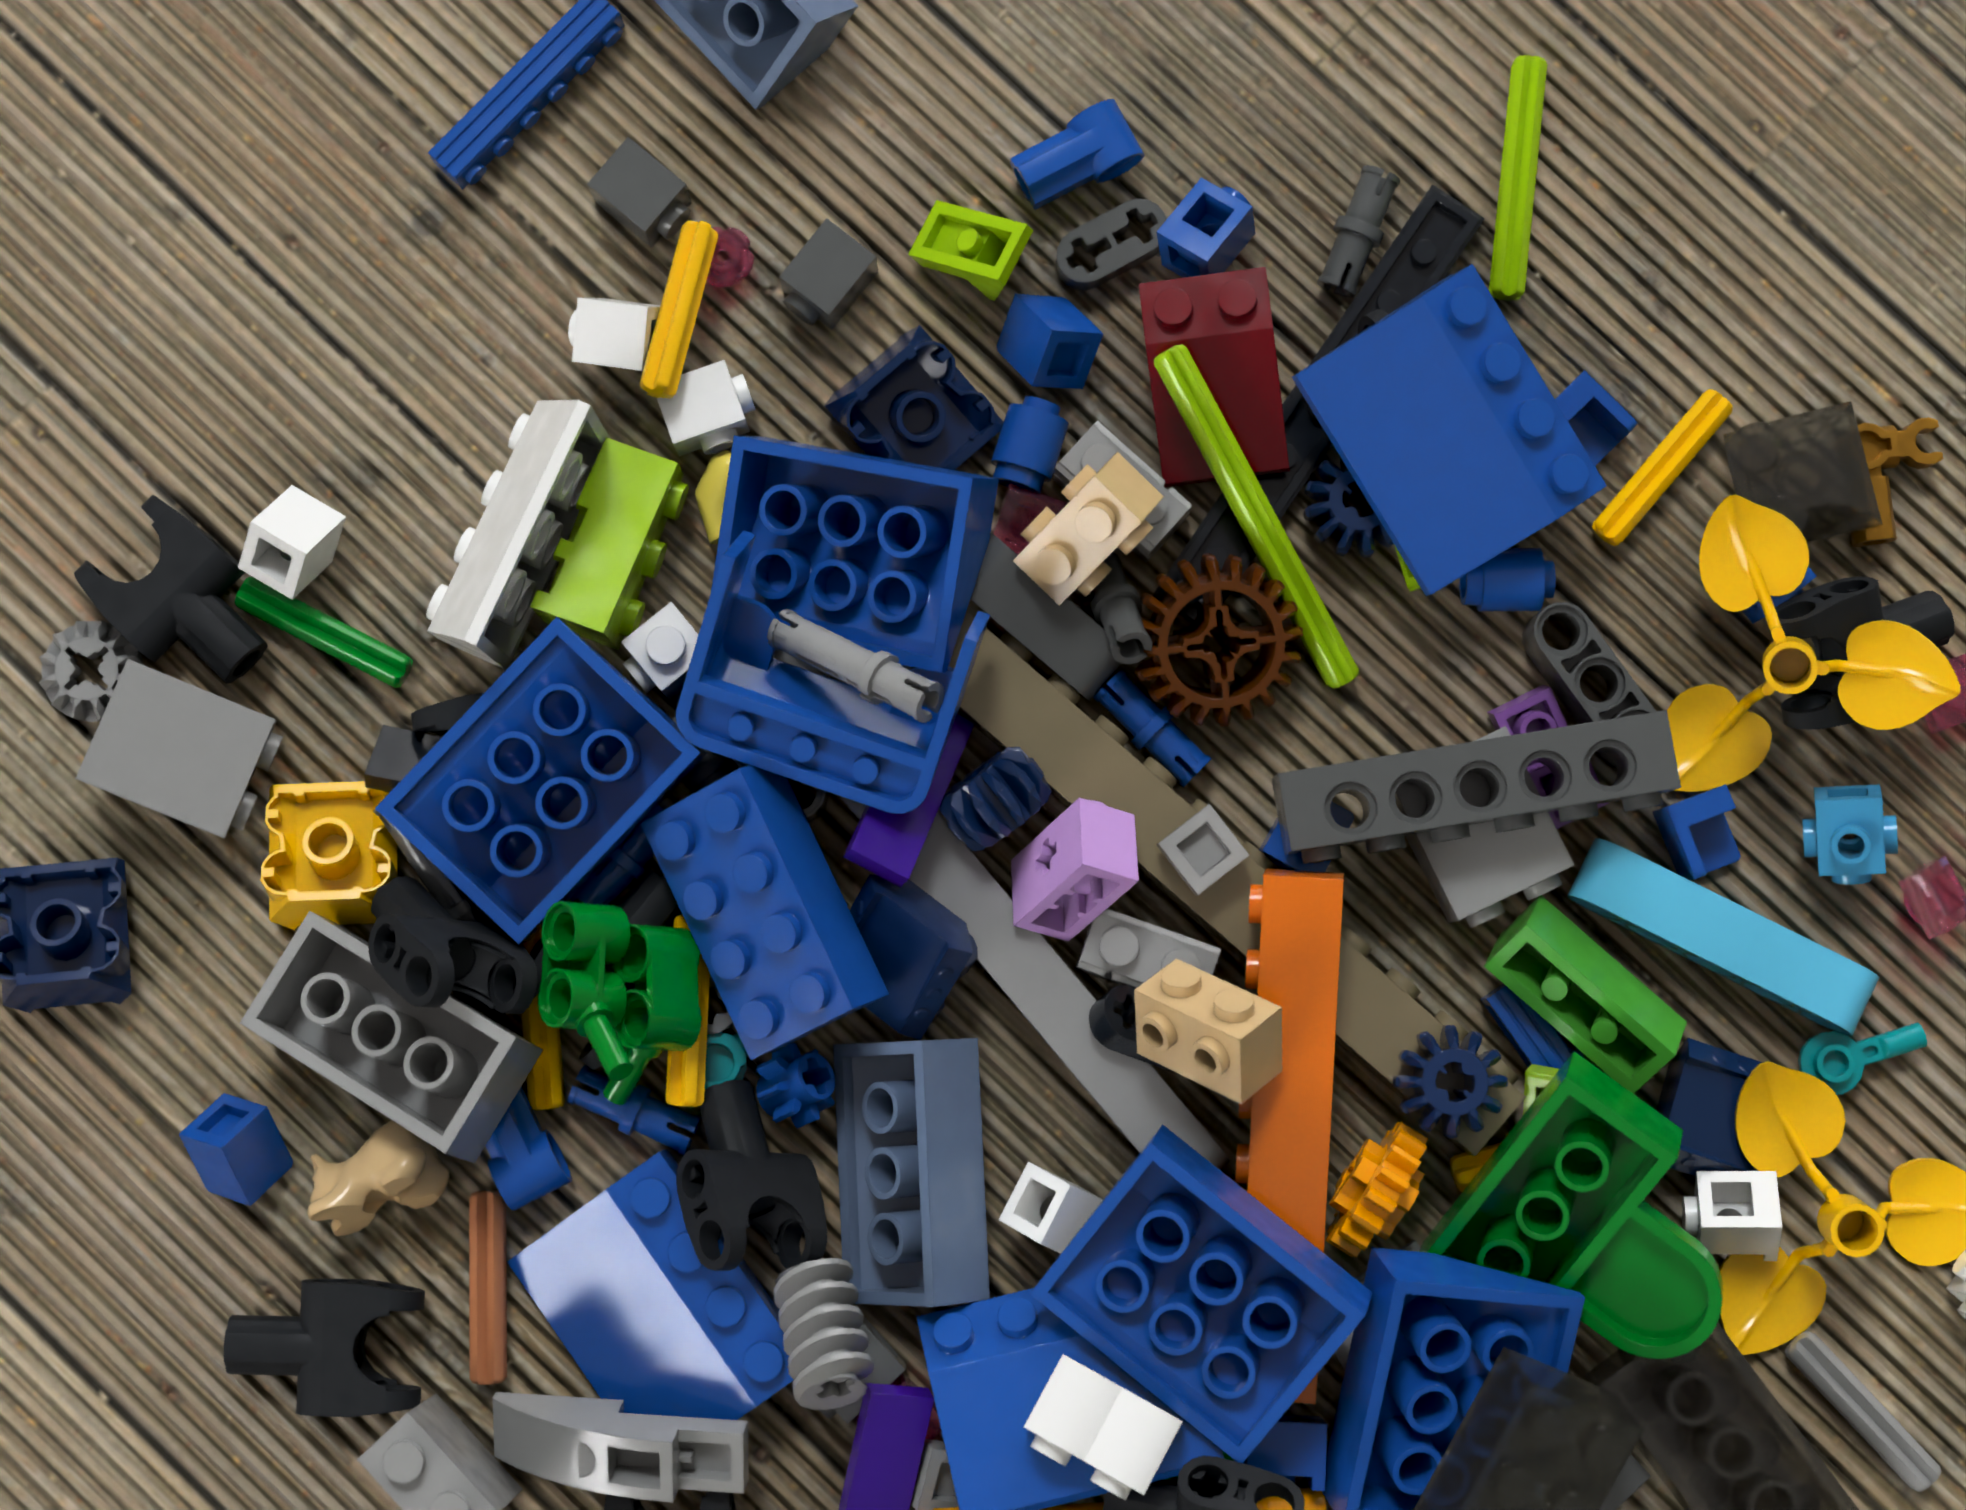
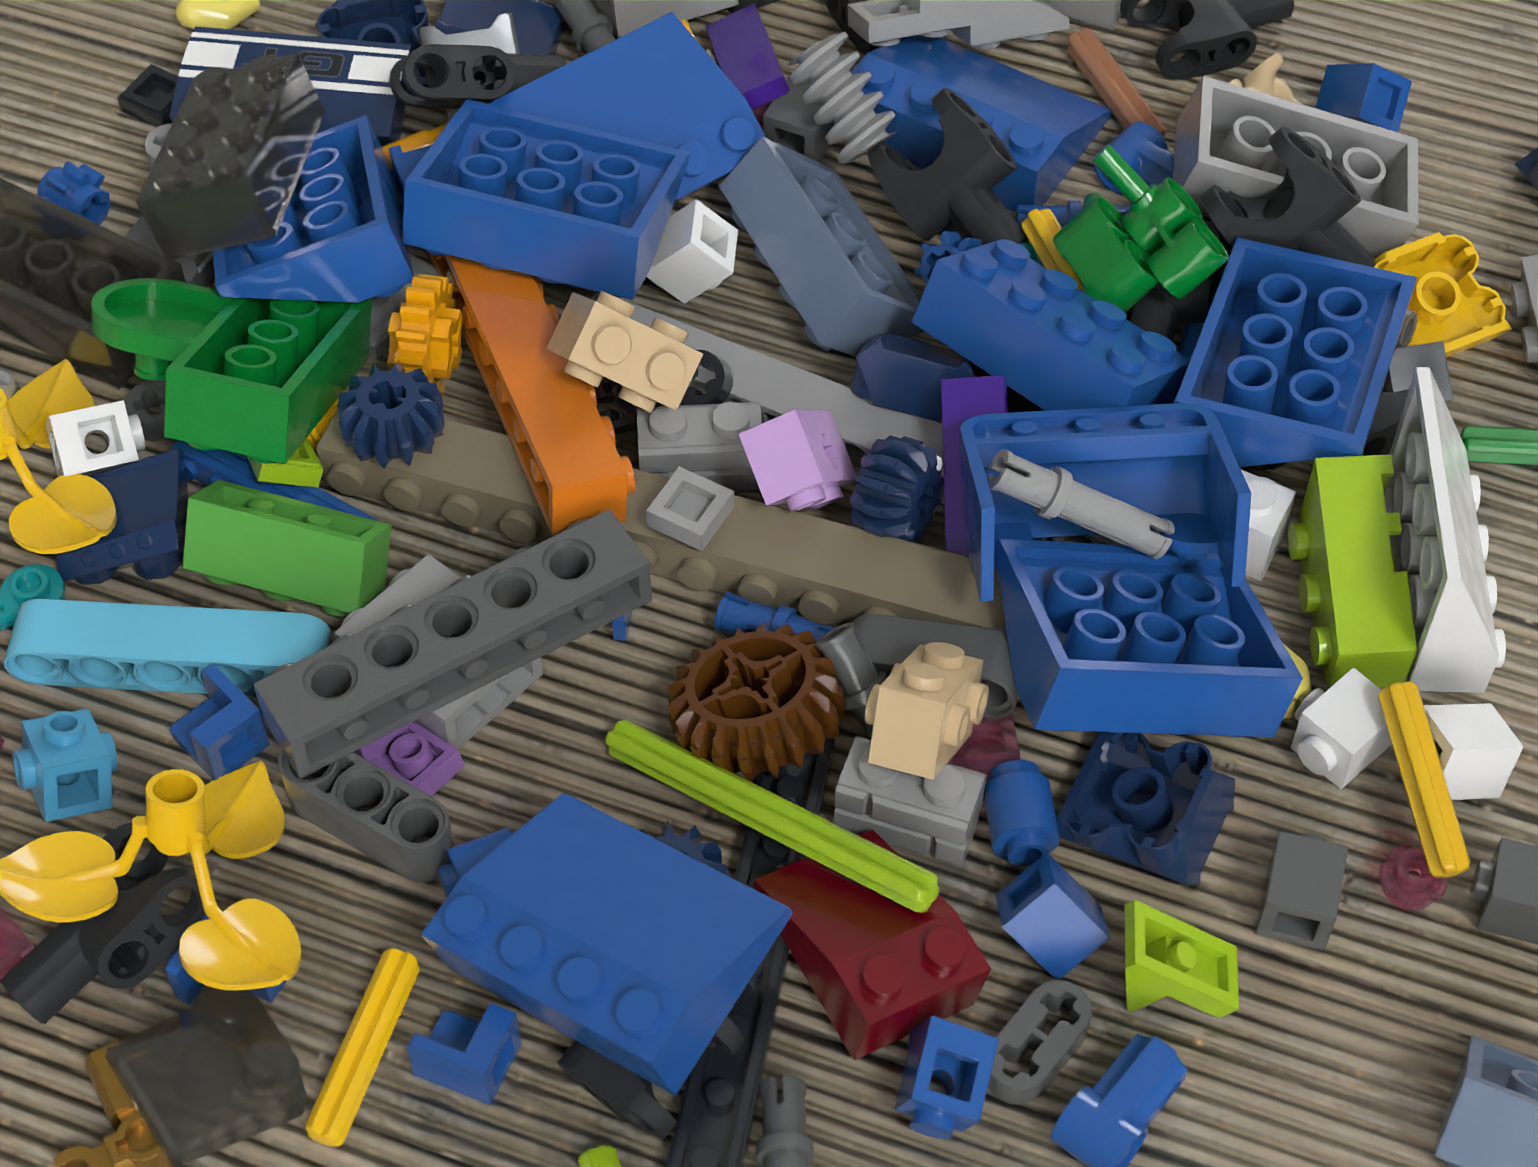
camera: 160 degrees right, 30 degrees down
(1101, 1426) = (589, 81): white brick -> none

